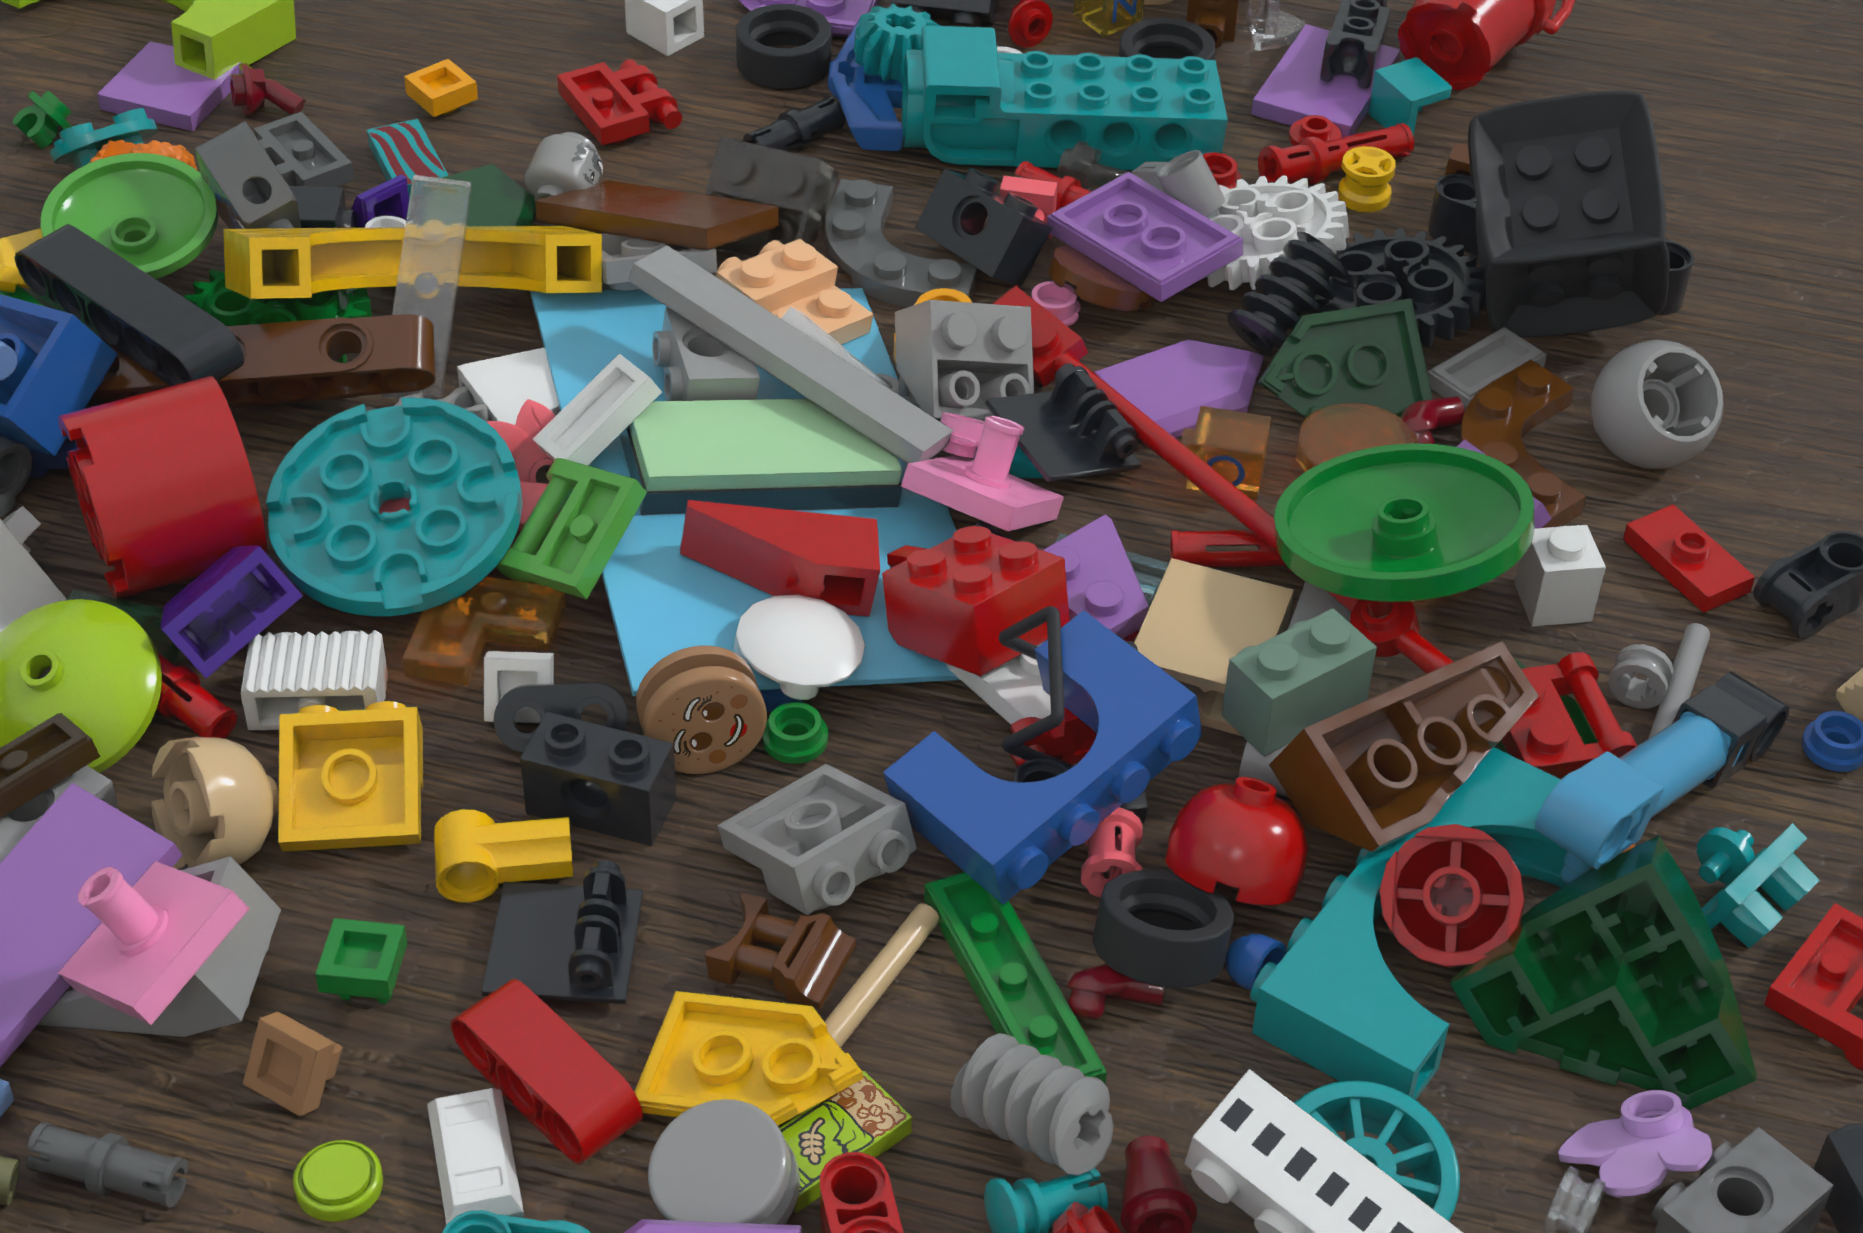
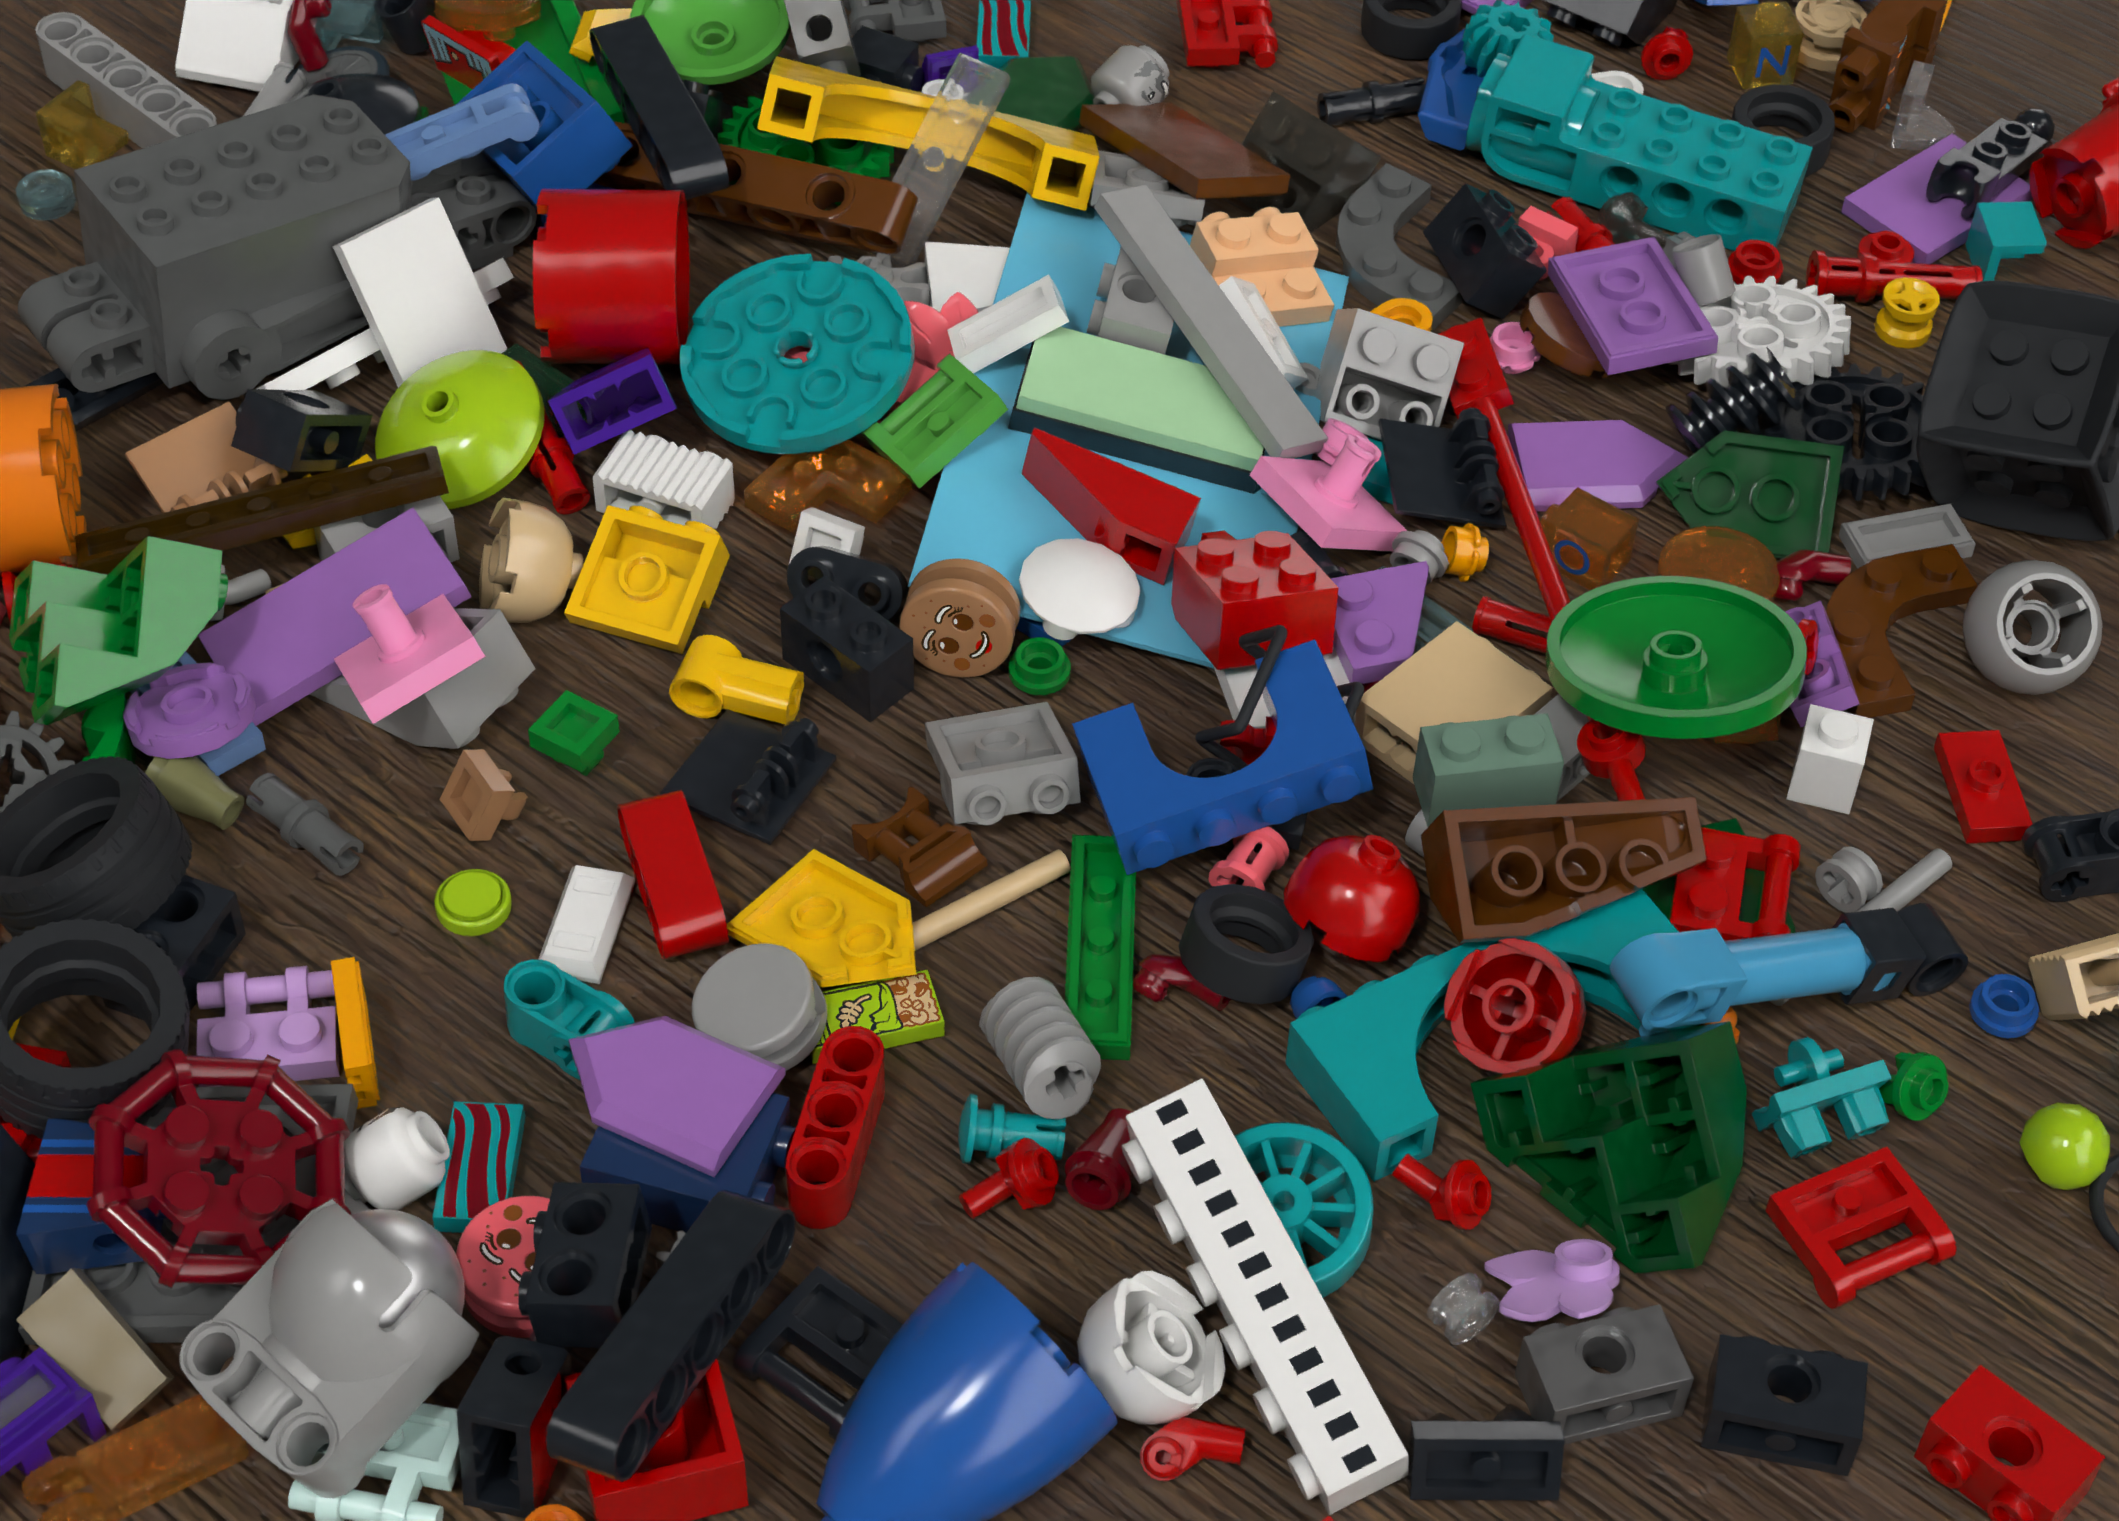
camera: 25 degrees right, 5 degrees up
(1084, 507) = (1418, 547): none -> light grey plate
(1123, 497) = (1465, 550): none -> light orange plate
(1497, 1096) = (1458, 1197): none -> red plate
(1824, 834) = (1917, 1086): none -> green plate

